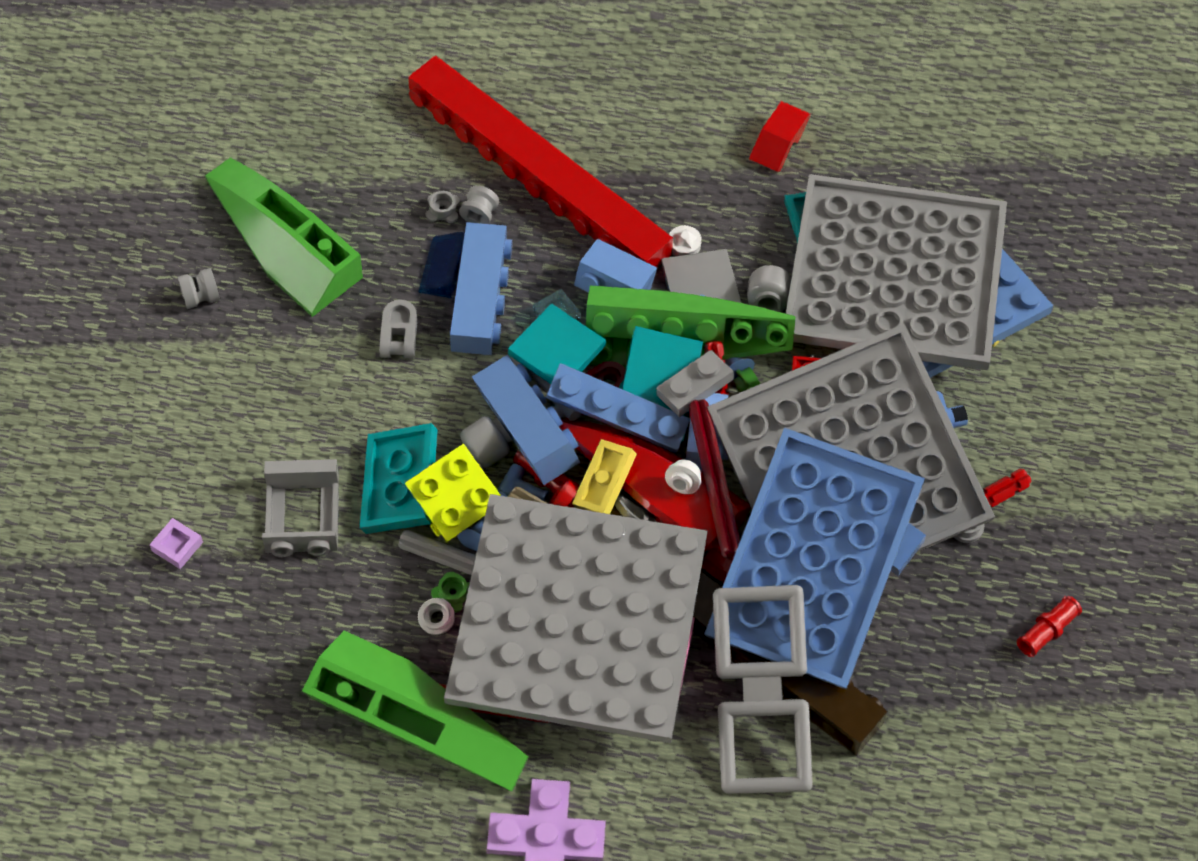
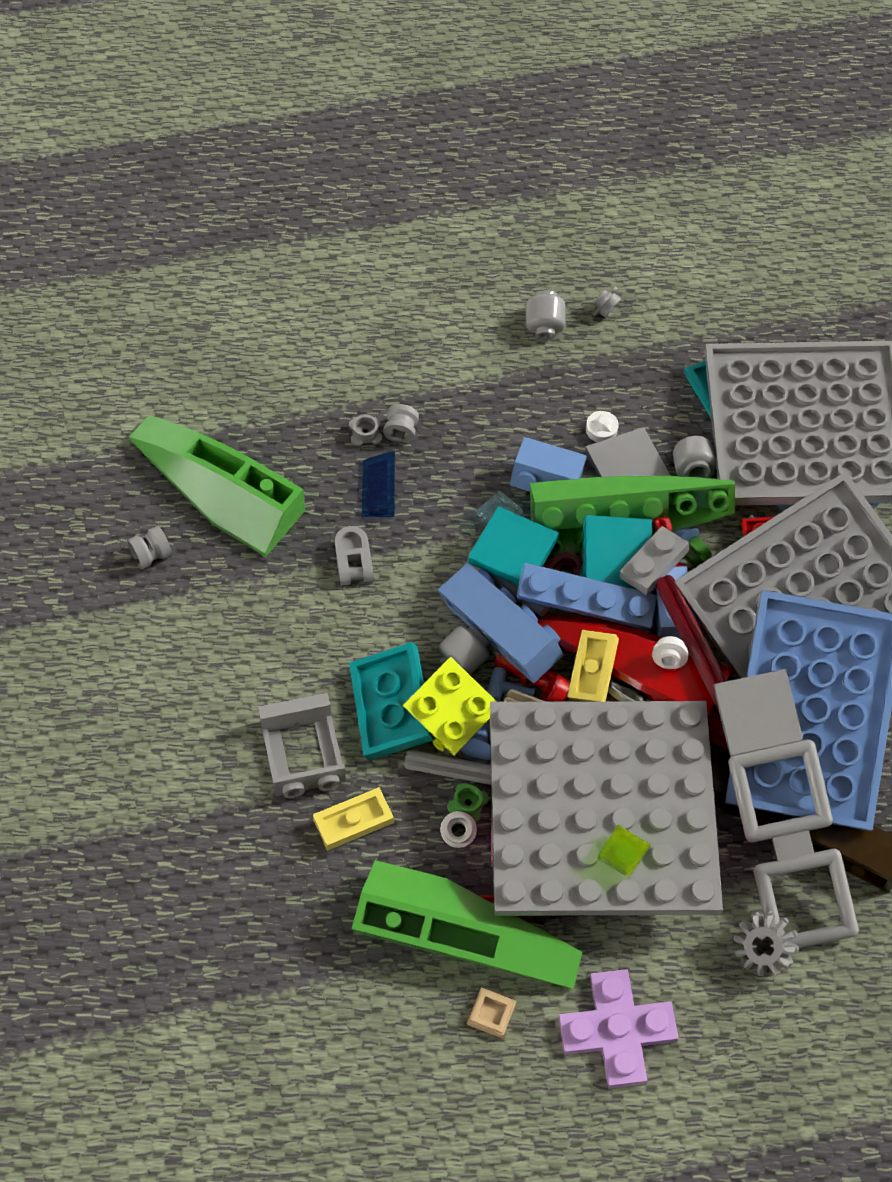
camera: 10 degrees left, 0 degrees up
(176, 543) = (187, 803): lavender plate -> none
(334, 587) = (353, 818): none -> light yellow plate
(425, 799) = (491, 1012): none -> tan tile
(479, 288) = (421, 503): medium blue brick -> none
(536, 163) = (444, 373): red brick -> none
(584, 662) = (623, 851): none -> clear neon green tile
(654, 118) = (545, 314): none -> light grey head
(699, 778) = (771, 957): none -> light grey gear
(721, 116) = (606, 302): none -> light grey plate
(753, 549) = (757, 712): none -> light grey tile
(778, 135) = (666, 312): red slope -> none

